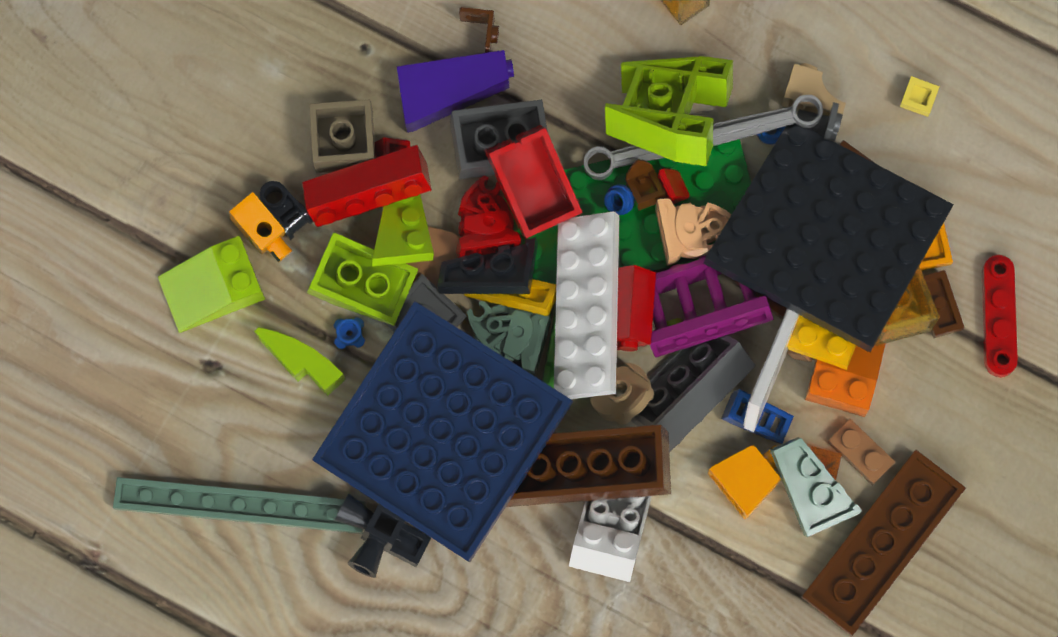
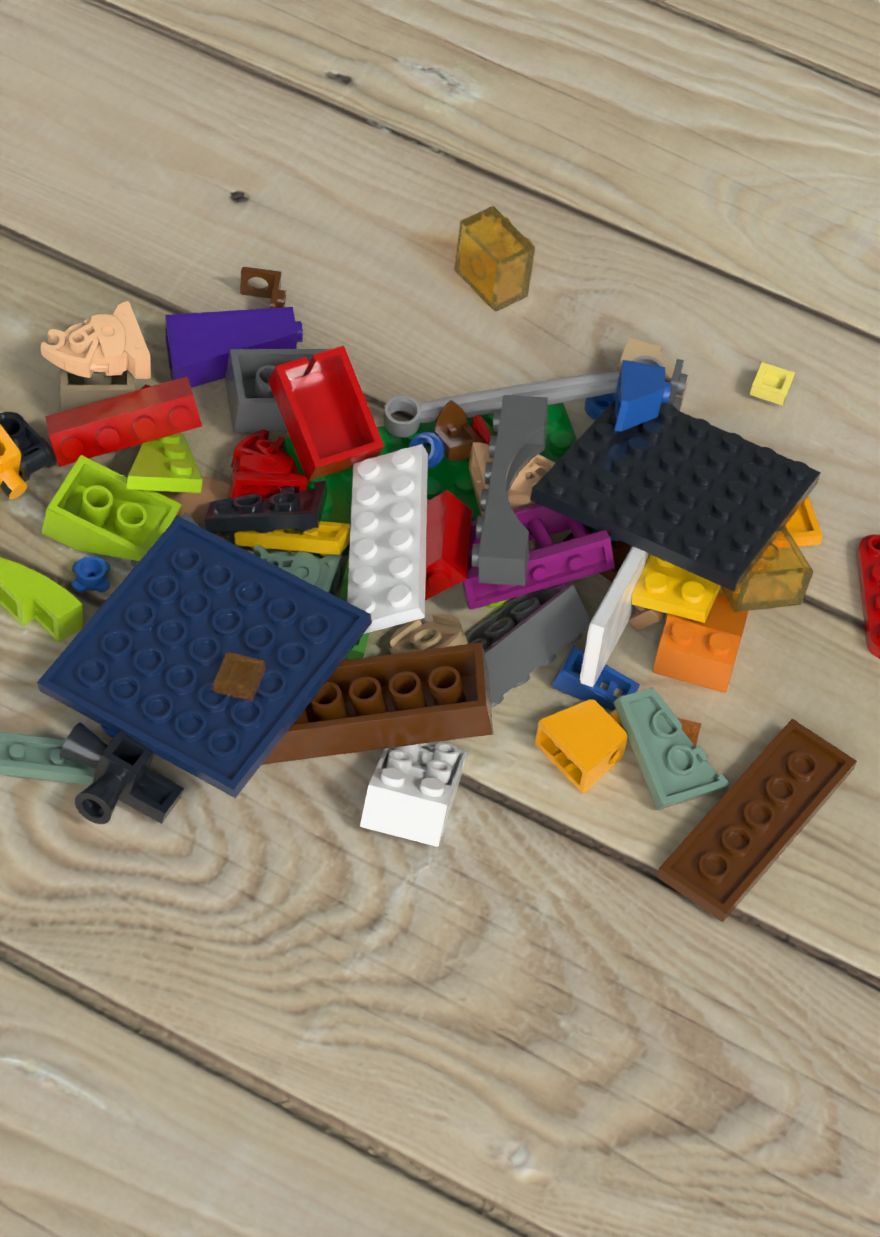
camera: 10 degrees left, 25 degrees down
(347, 120) = (101, 345): none -> light nougat piece
(469, 460) = (239, 676): none -> clear orange tile
(660, 104) = (485, 360): lime wedge -> none
(696, 197) = (504, 539): none -> dark grey arch
(799, 142) = (639, 394): none -> blue slope
(861, 452) = (725, 725): medium nougat plate -> none
(942, 295) = (821, 592): reddish brown plate -> none

